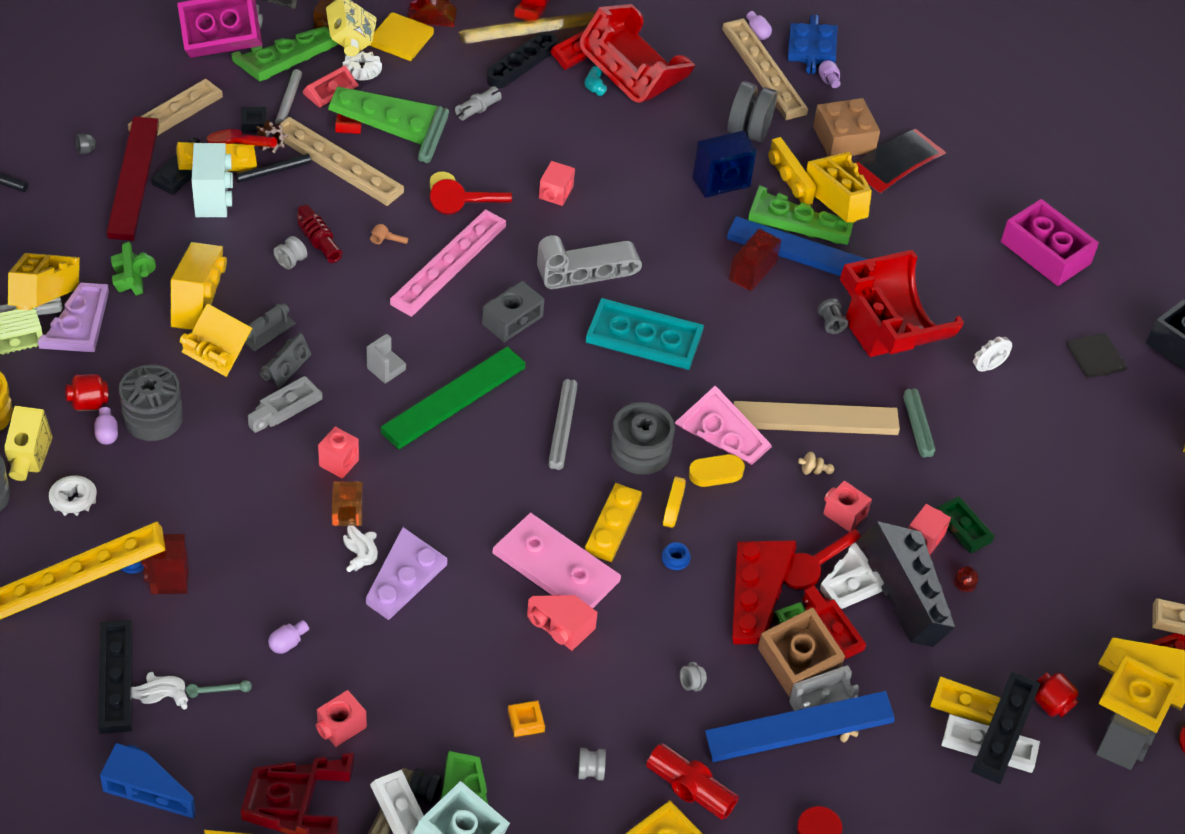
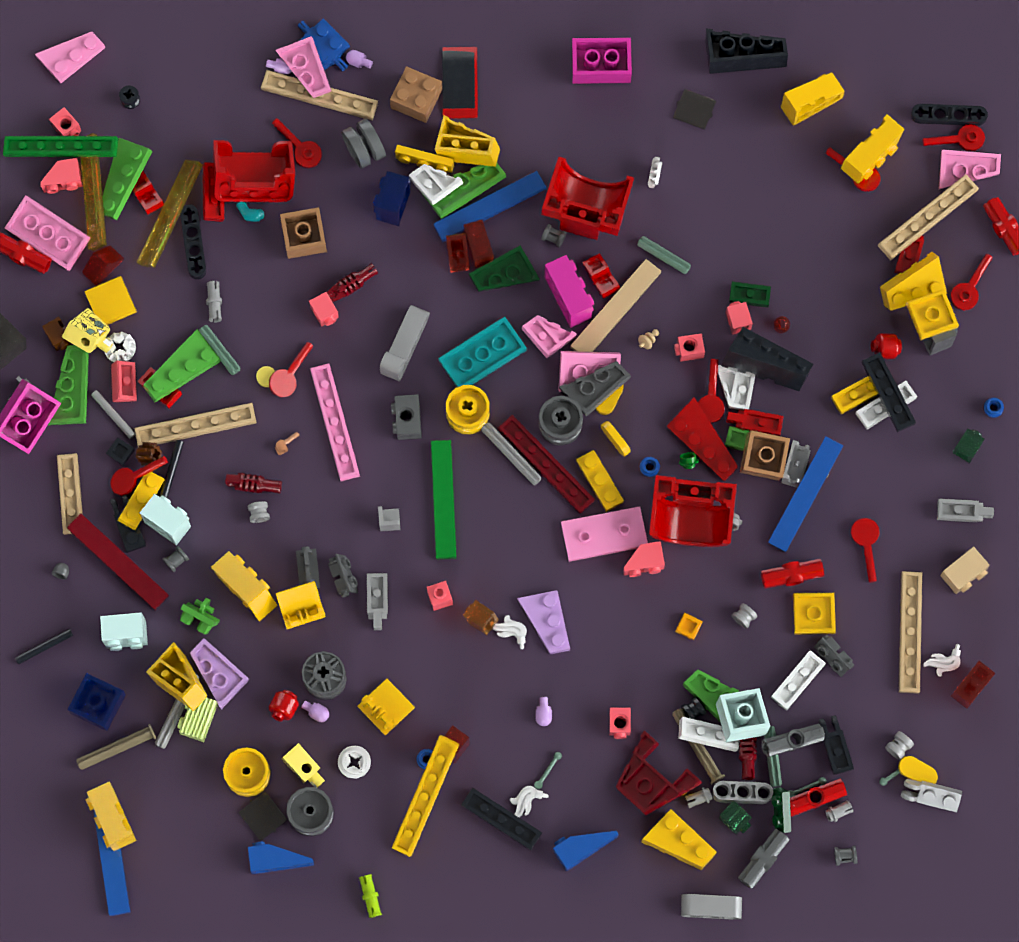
camera: 45 degrees left, 25 degrees up
(57, 213) = (124, 631): none -> light aqua brick
(164, 485) = (385, 706): none -> yellow hinge
(177, 218) = (175, 559): none -> dark grey bush
(571, 351) = (457, 411): none -> yellow wheel
(582, 464) = (546, 464): none -> dark red tile
(605, 189) = (351, 283): none -> dark red hinge
(616, 122) = (303, 233): none -> medium nougat brick
(661, 628) = (691, 515): none -> red piece
(698, 90) = (307, 153): none -> red piece
(706, 446) = (596, 387): none -> dark grey wing
(720, 587) = (688, 460): none -> green plate
(723, 371) = (547, 335): none -> bright pink wing
(726, 246) = (457, 252): none -> clear red slope
(750, 299) = (504, 271): none -> dark green wing
(776, 187) = (434, 183): none -> white wing
(779, 35) = (306, 65): none -> bright pink wing
(787, 355) = (569, 291): none -> dark pink brick
(836, 382) = (601, 275): none -> red slope

